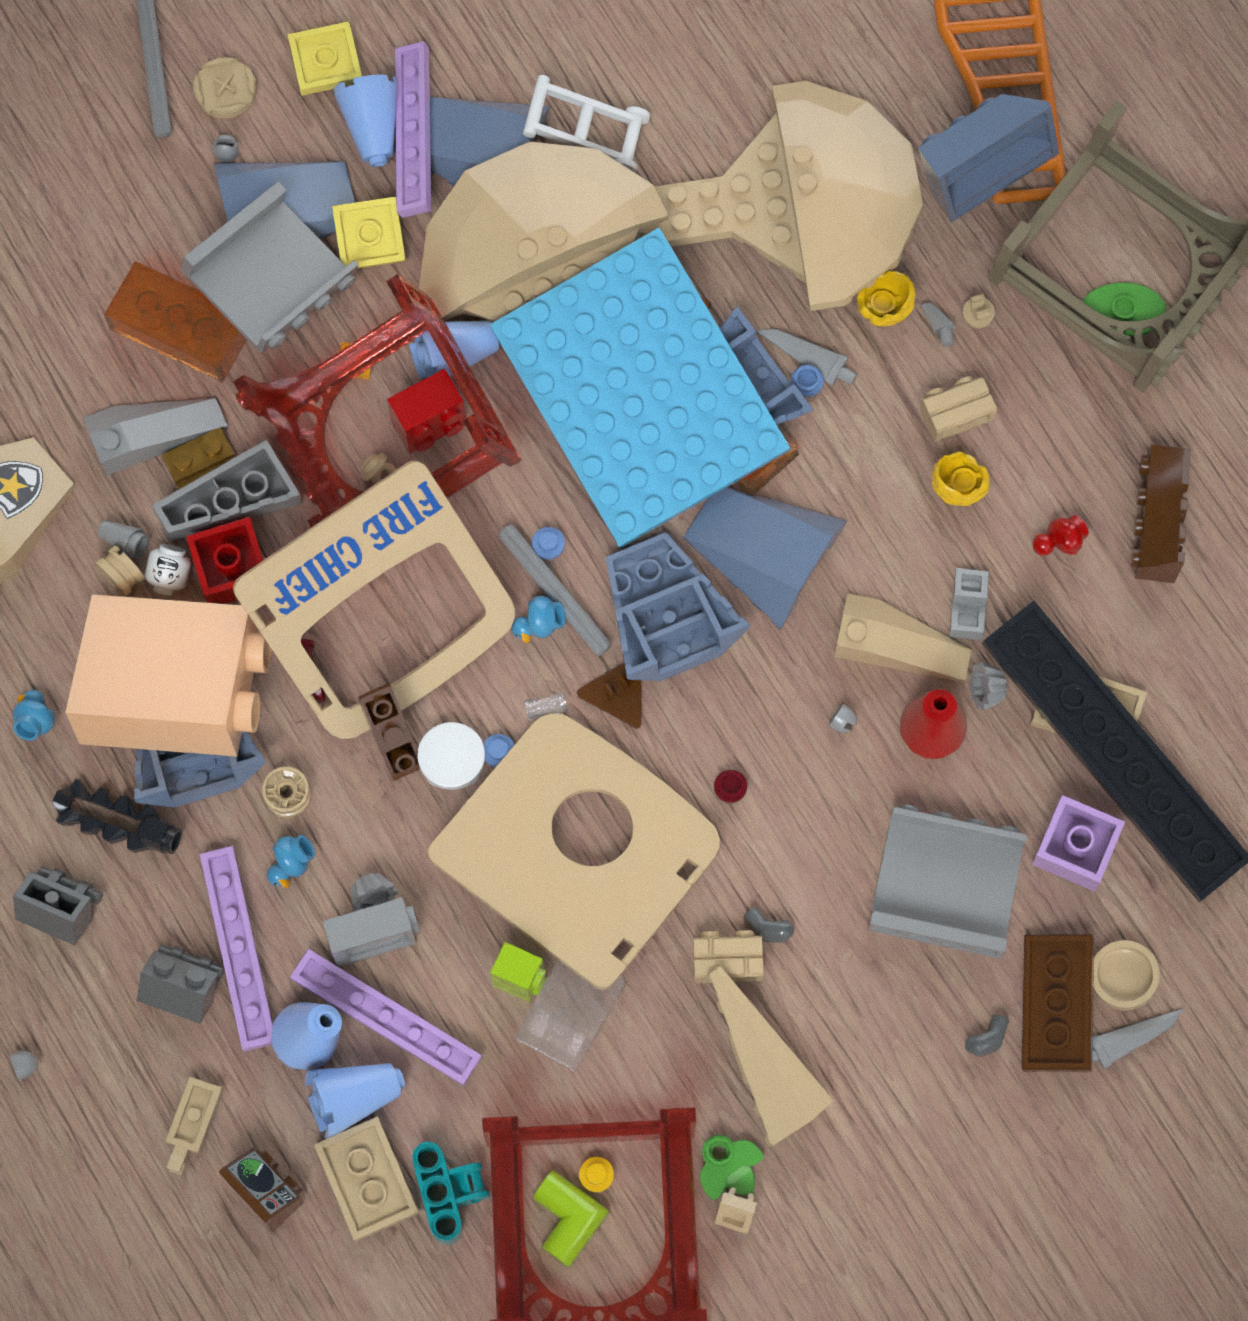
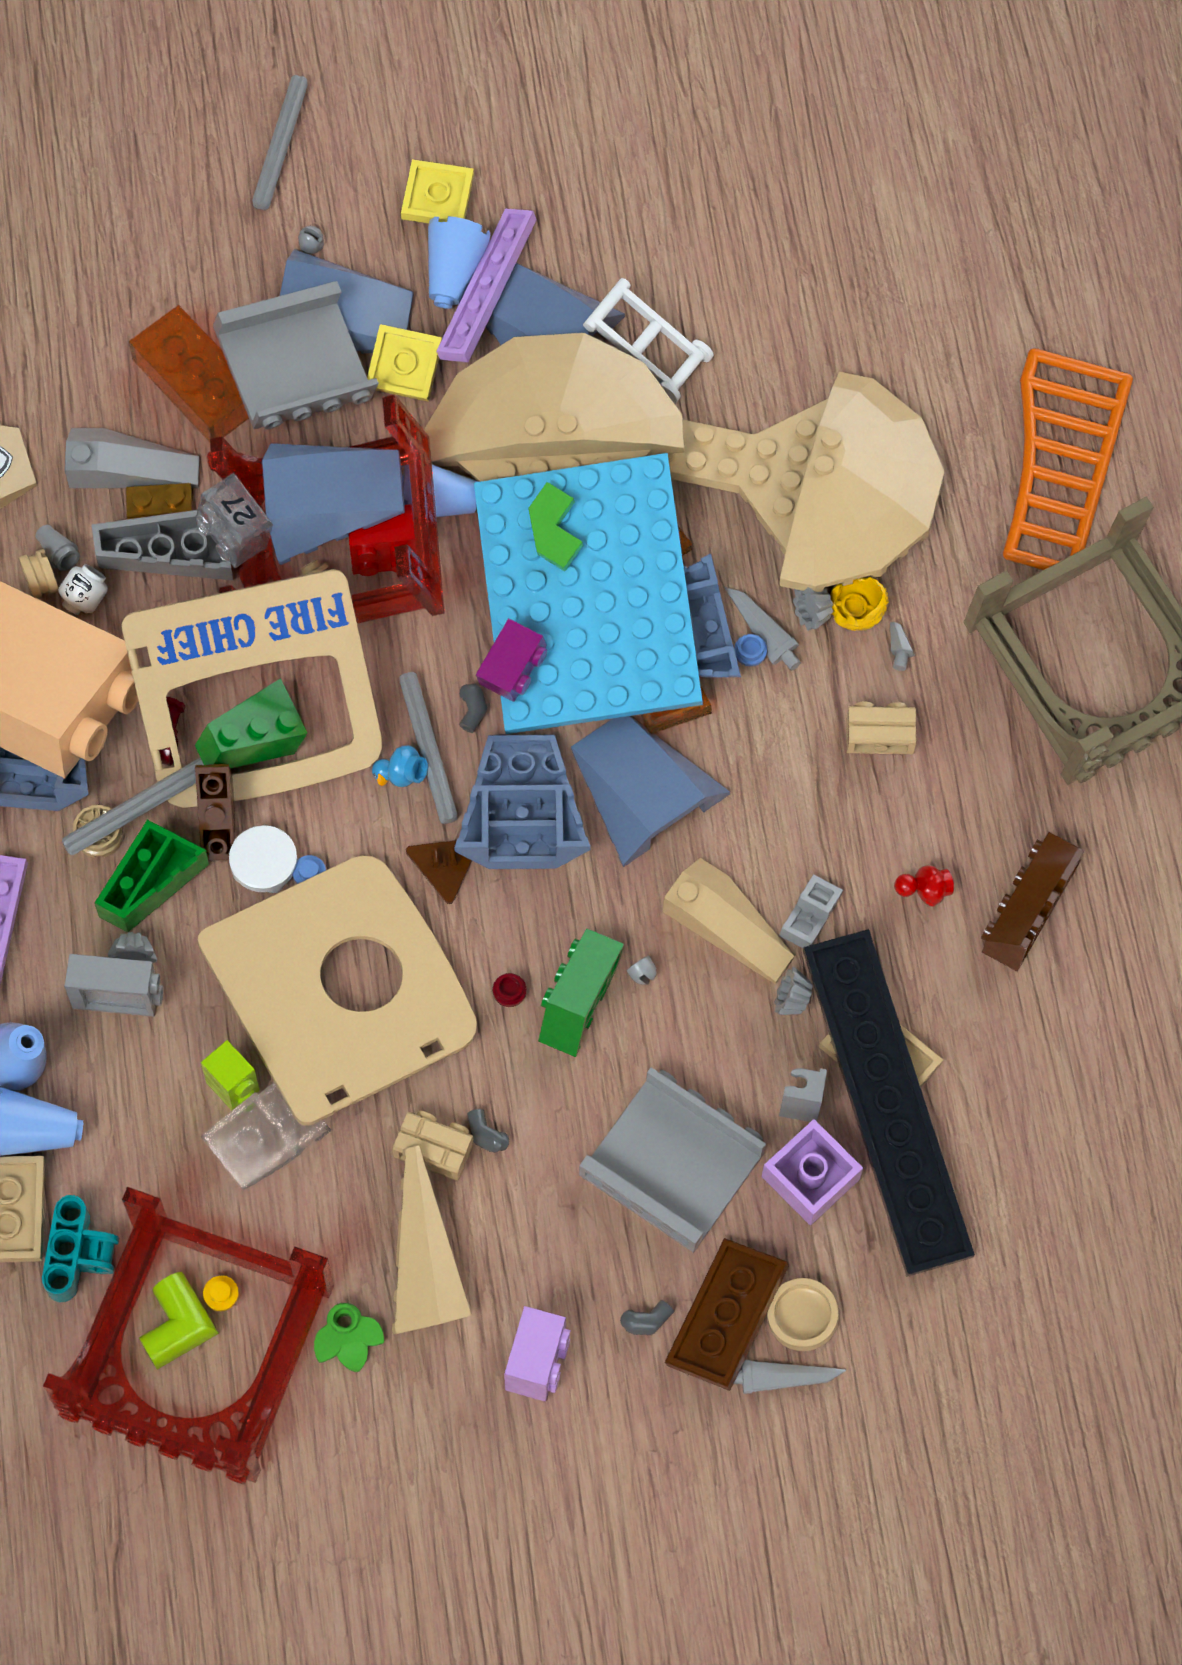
camera: 20 degrees right, 5 degrees down
(224, 87) = (335, 186): tan tile -> none
(224, 556) = (135, 590): red brick -> none
(288, 450) = (233, 521): none -> clear brick
(292, 859) = (74, 892): dark azure animal -> none
(314, 756) = (131, 809): none -> light grey axle
(355, 814) = (148, 876): none -> green wedge
(364, 389) = (327, 493): none -> sand blue wedge
(386, 1017) = (94, 1071): lavender plate -> none
(392, 641) = (254, 730): none -> green wedge
(546, 705) = (377, 848): clear pin -> none
(548, 543) = (441, 702): medium blue plate -> none
(581, 532) = (476, 704): none -> dark grey arm
(588, 352) = (546, 515): none -> bright green tile
(601, 479) = (512, 660): none -> magenta brick
(736, 1211) = (334, 1380): tan tile -> none
(797, 762) = (578, 990): none -> wedge
(846, 319) = (812, 607): none -> light grey piece
(909, 1112) = (535, 1354): none -> lavender brick
(933, 725) = (726, 1009): red cone -> none
(960, 479) = (852, 794): yellow hair -> none
(978, 311) = (941, 649): tan plate -> none
(987, 151) = (1007, 500): sand blue slope -> none
(1045, 779) = (804, 1102): none -> light grey hinge
(1126, 303) = (1086, 695): bright green piece -> none

